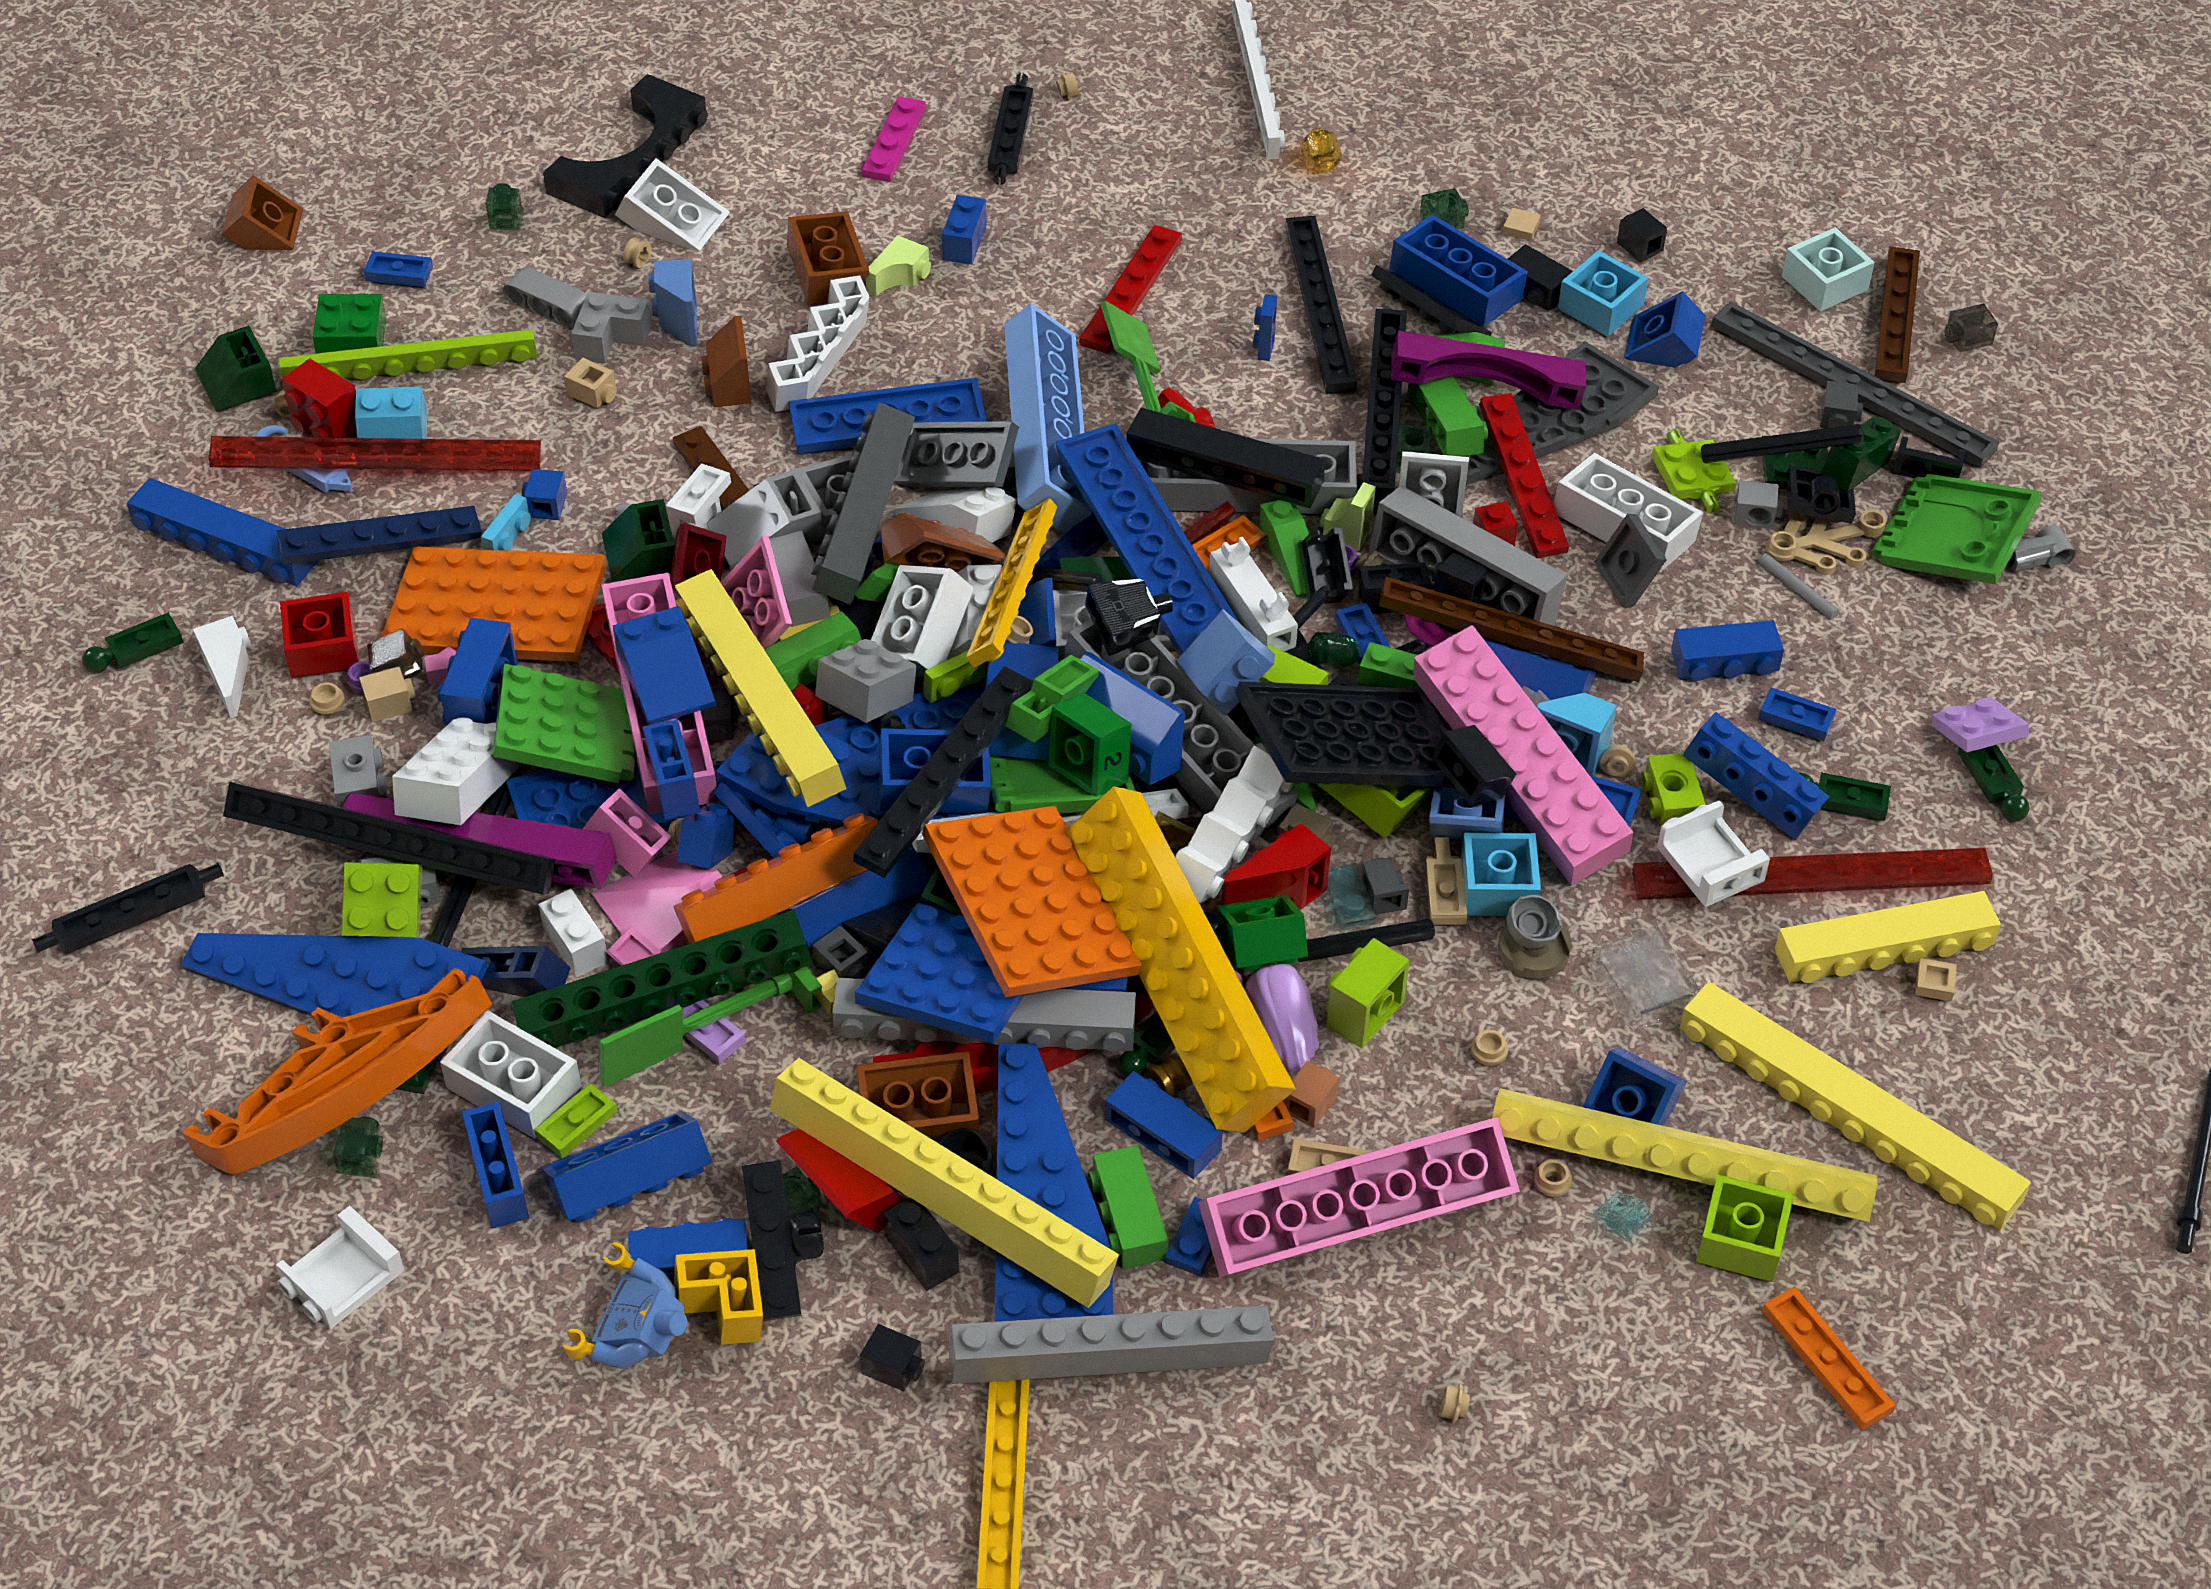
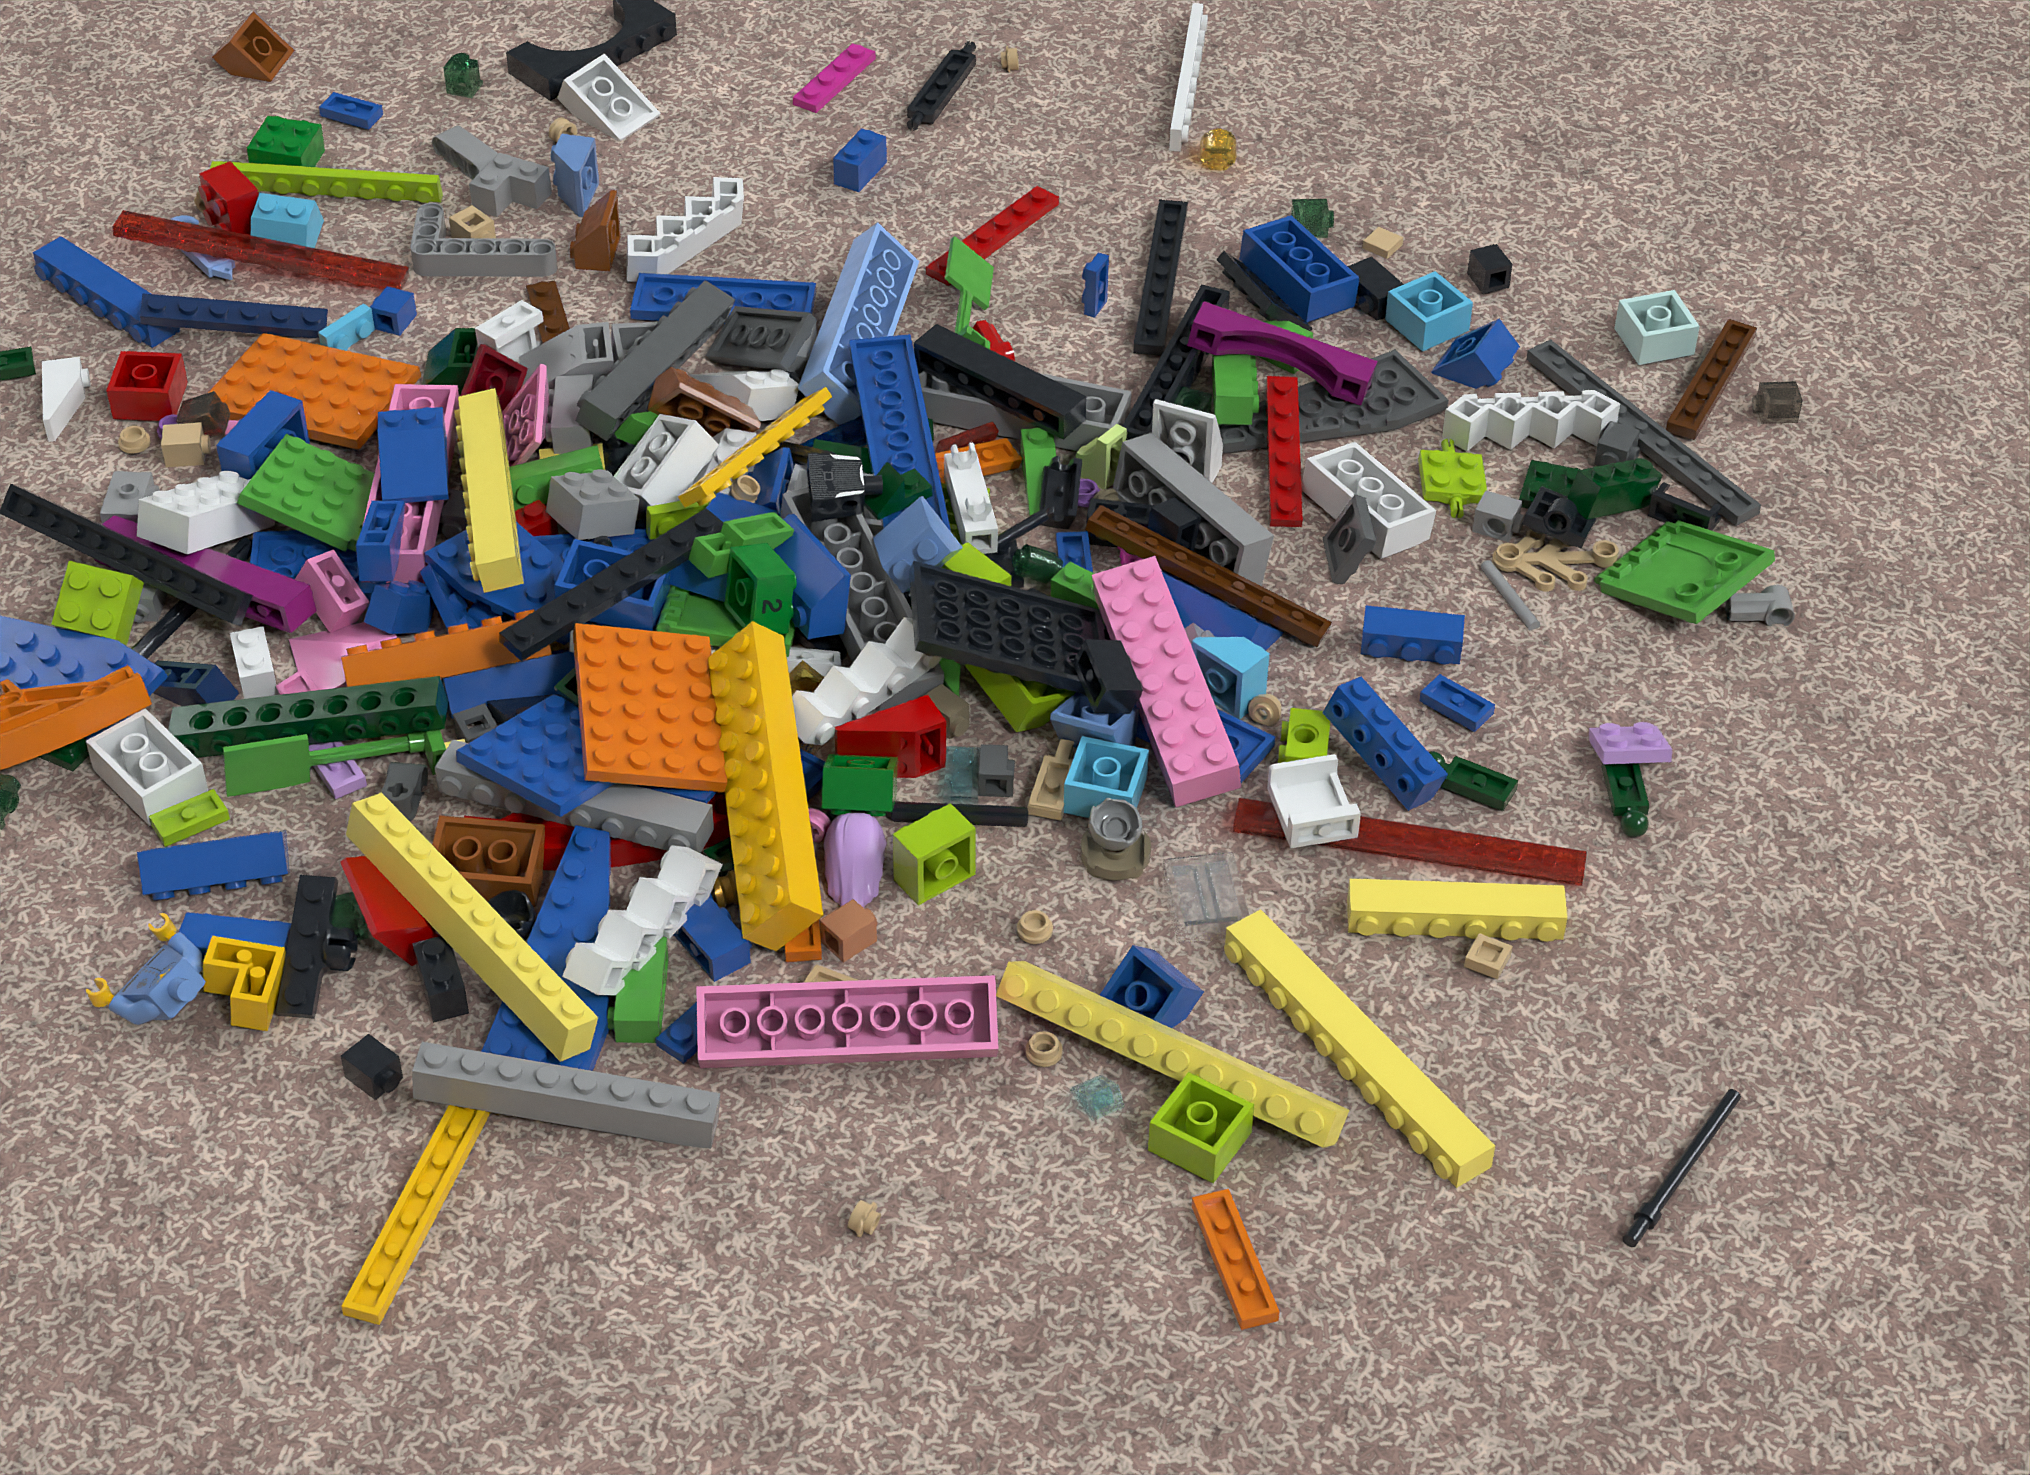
camera: 15 degrees right, 5 degrees down
(235, 370) = (173, 165): dark green slope -> none
(495, 1165) = (100, 836): blue brick -> none
(606, 414) = (494, 257): none -> light grey beam
(789, 1036) = (405, 786): none -> dark grey piece
(824, 250) = (724, 152): dark orange slope -> none
(899, 264) = (787, 179): yellowish green arch -> none
(1120, 1127) = (654, 911): none -> white brick
(1188, 600) = (898, 491): none -> dark green slope
(1497, 520) = (1238, 486): red brick -> none
(1759, 389) = (1512, 418): none -> white brick
(1782, 443) = (1534, 462): black axle -> none

